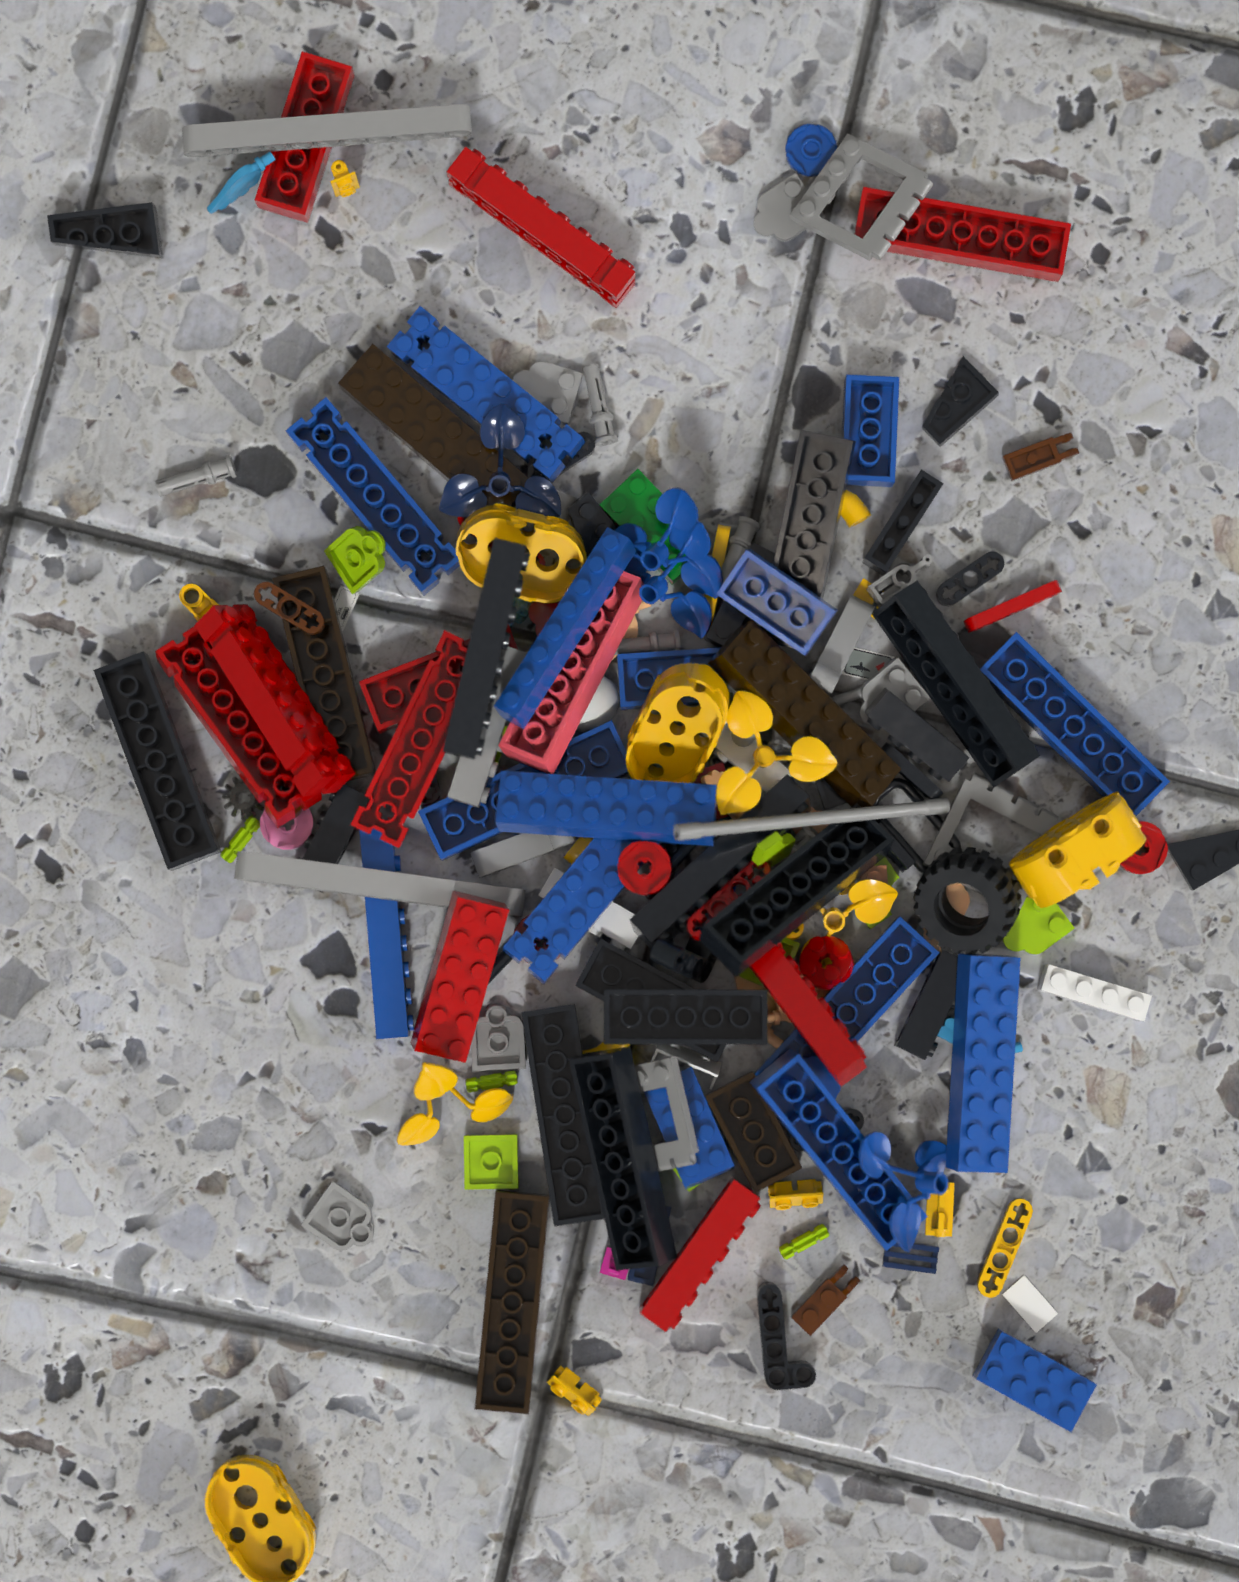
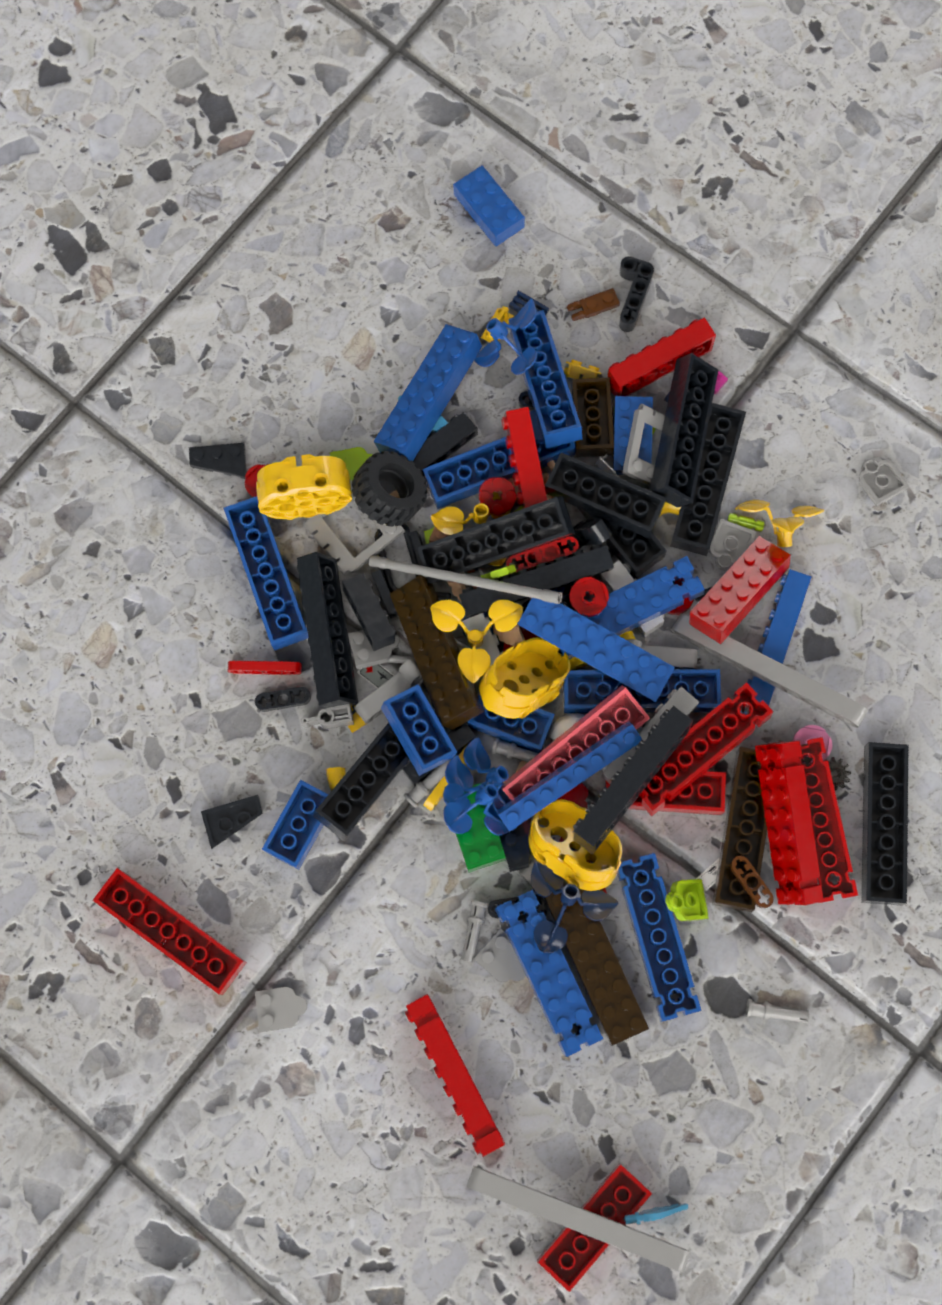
camera: 150 degrees left, 10 degrees down
(112, 229) = (761, 1222): black wedge -> none
(200, 607) = (810, 916): yellow piece -> none
(240, 839) = (848, 748): lime axle -> none
(335, 827) = (783, 722): black brick -> none
(344, 182) = (580, 1179): yellow hinge -> none
(491, 1161) = (768, 473): lime plate -> none
(512, 1302) = (791, 383): dark brown brick -> none
(565, 1386) = (771, 311): yellow hinge -> none
(804, 1241) = (590, 343): lime axle -> none
(810, 149) = (240, 1044): blue tile -> none
(888, 223) = (240, 1010): light grey hinge -> none
(902, 522) = (308, 753): black brick -> none
(1008, 1249) = (466, 286): yellow beam -> none
(1030, 1304) = (469, 251): white sticker -> none
(1037, 457) = (197, 757): reddish brown hinge -> none
(1094, 992) = (337, 407): white brick -> none

